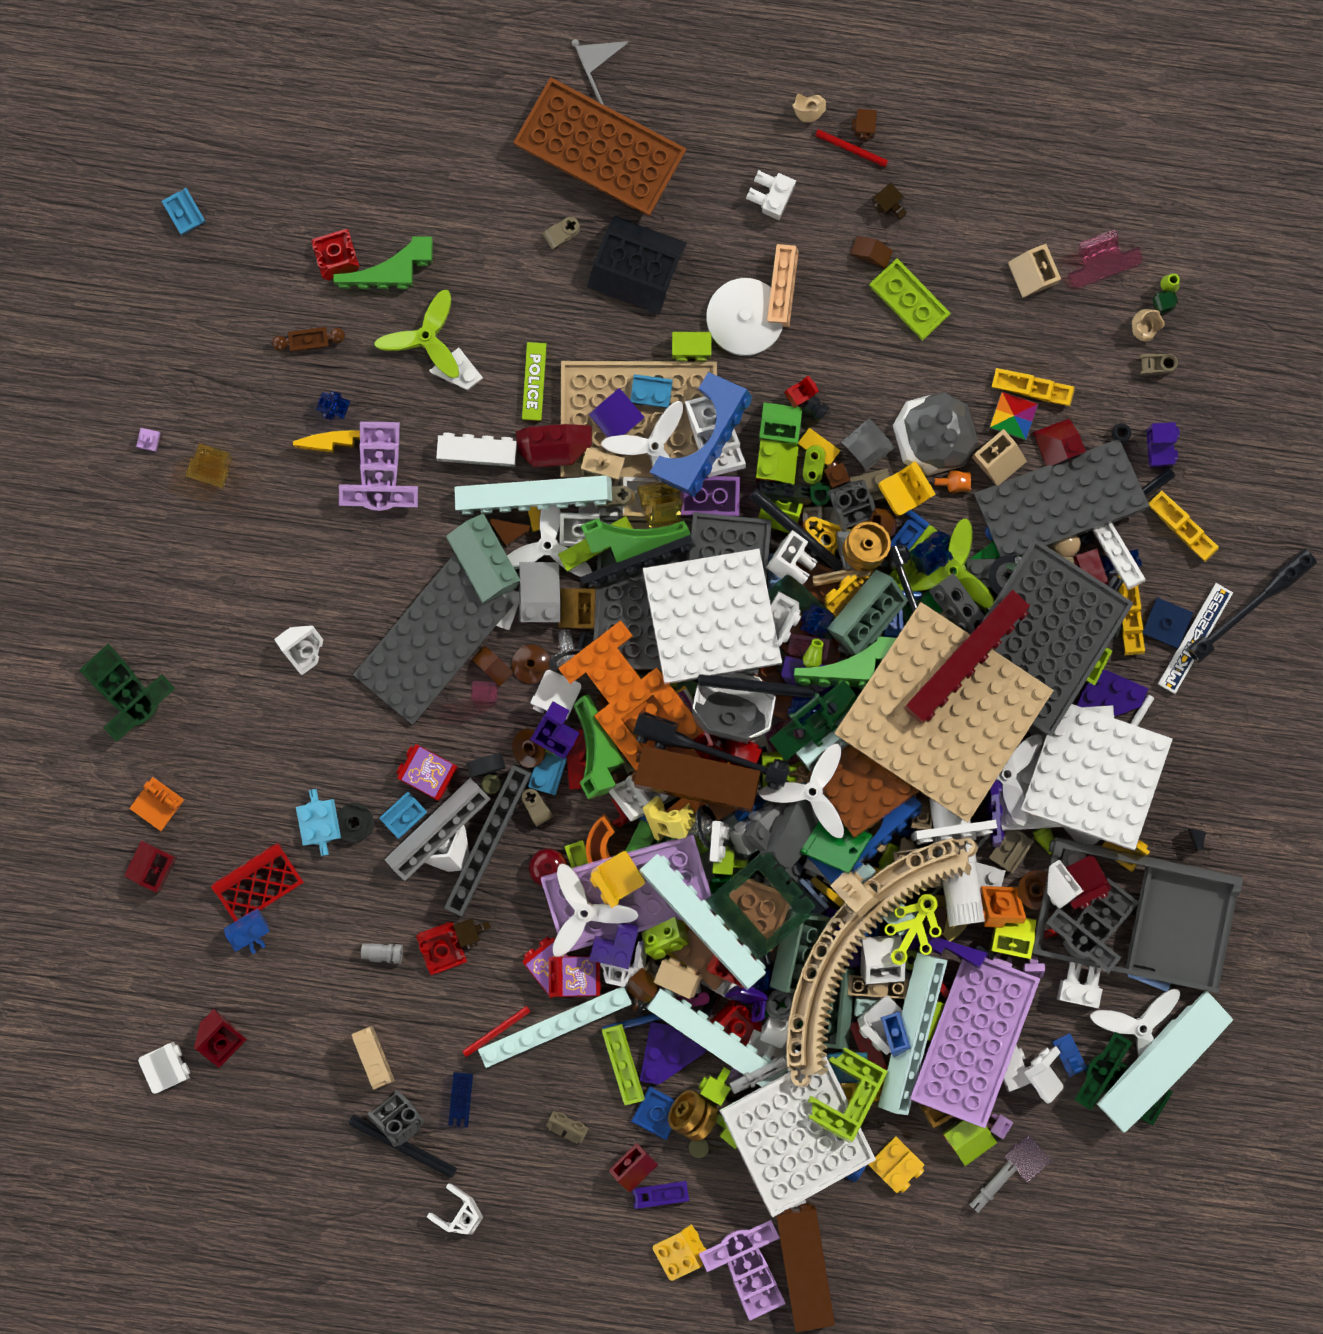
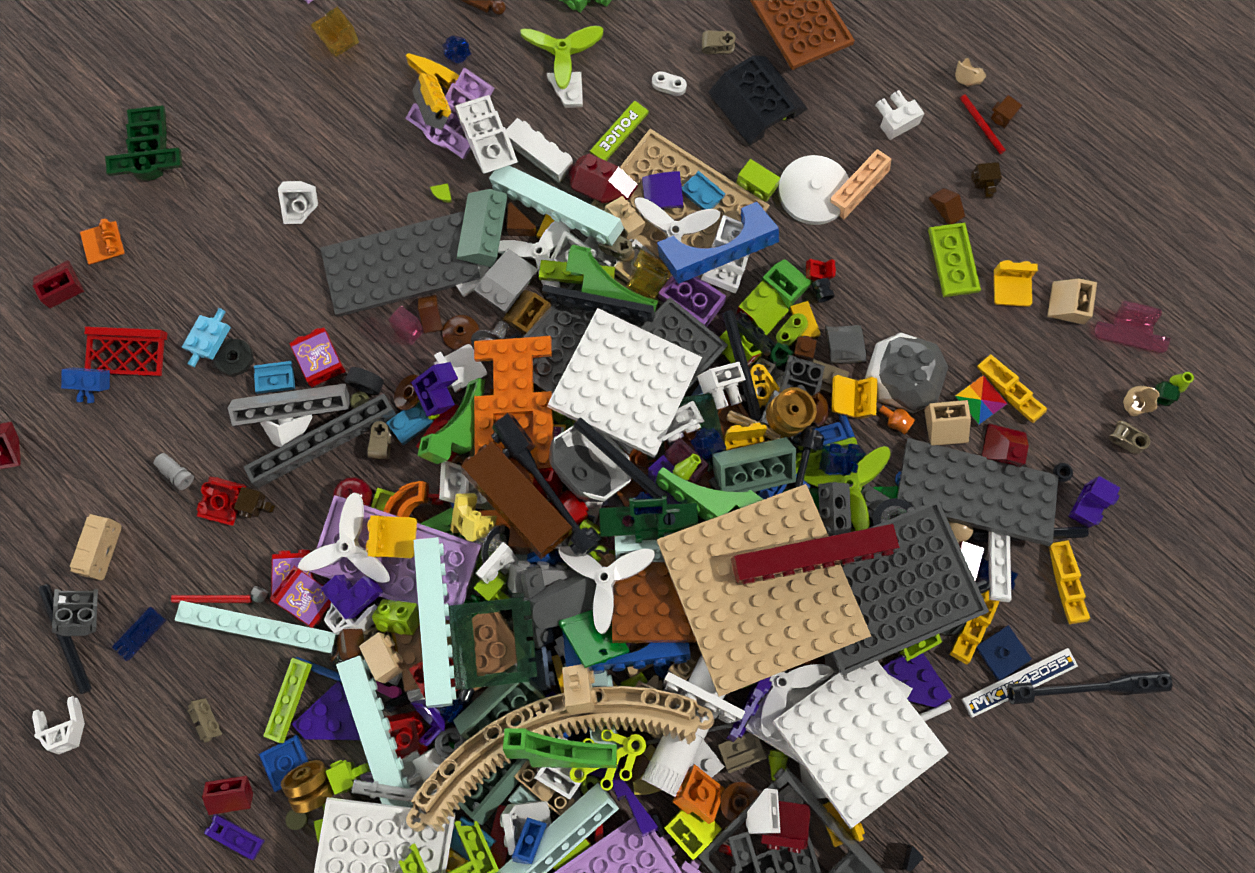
camera: 35 degrees right, 10 degrees down
(355, 476) = (431, 101): none -> piece
(419, 549) = (442, 192): none -> lime tile
(426, 473) = (486, 134): none -> white slope
(532, 1000) = (258, 594): none -> light grey hinge
(545, 302) = (668, 84): none -> white plate
(874, 951) = (555, 752): none -> bright green arch
(975, 289) = (1014, 283): none -> yellow bracket

